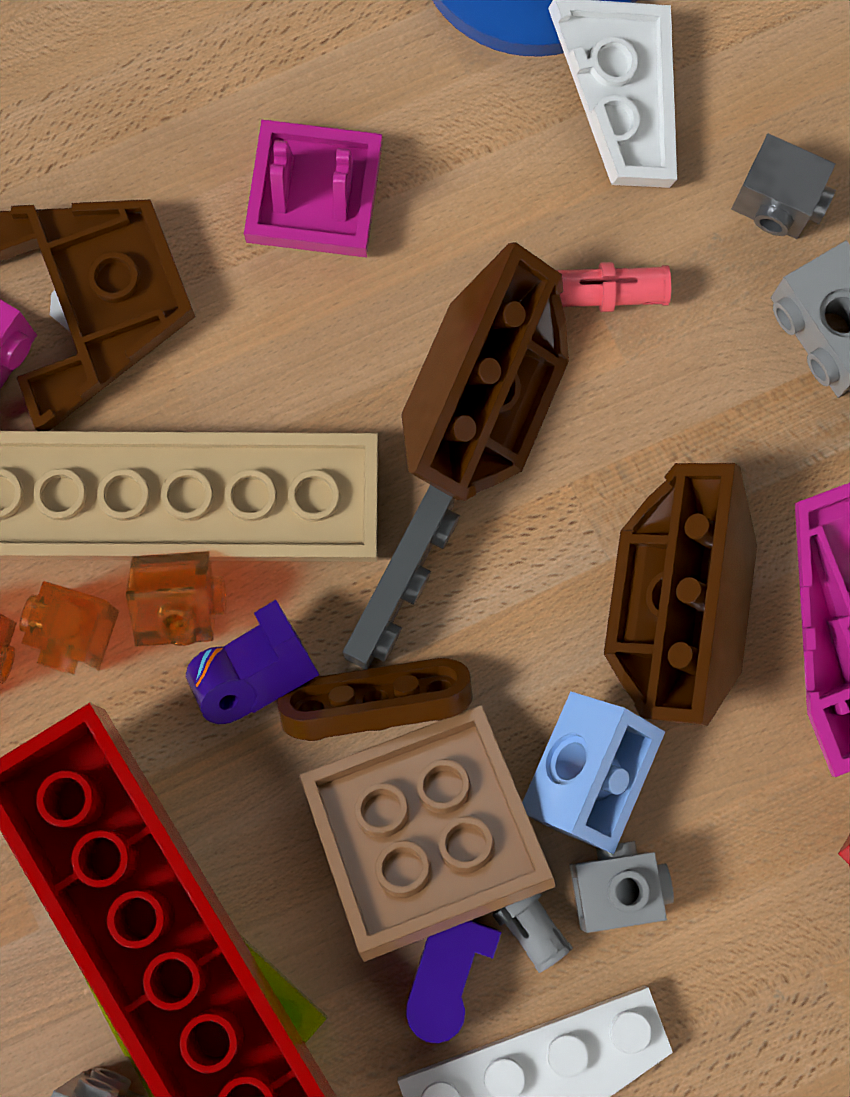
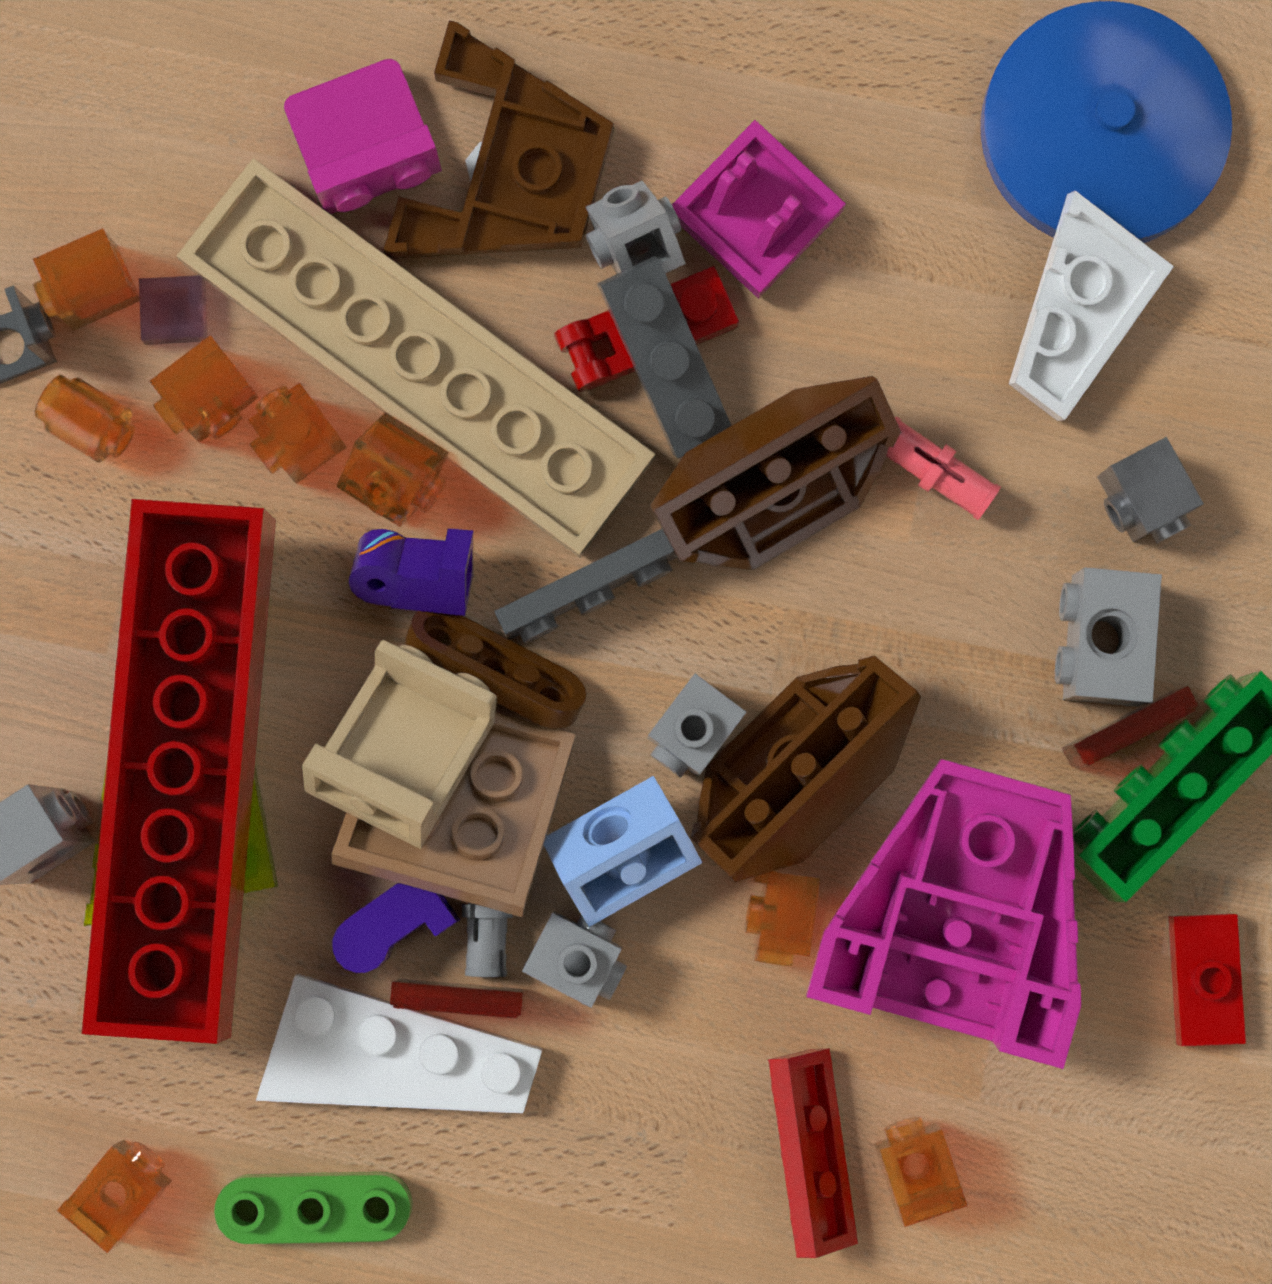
camera: 35 degrees right, 5 degrees up
(232, 272) = (634, 228): none -> light grey brick
(297, 341) = (701, 302): none -> red plate
(327, 349) = (664, 355): none -> dark grey plate
(348, 817) = (402, 744): none -> tan panel
(548, 996) = (457, 998): none -> clear red tile
(573, 628) = (694, 727): none -> light grey brick
(760, 728) = (782, 917): none -> clear orange brick

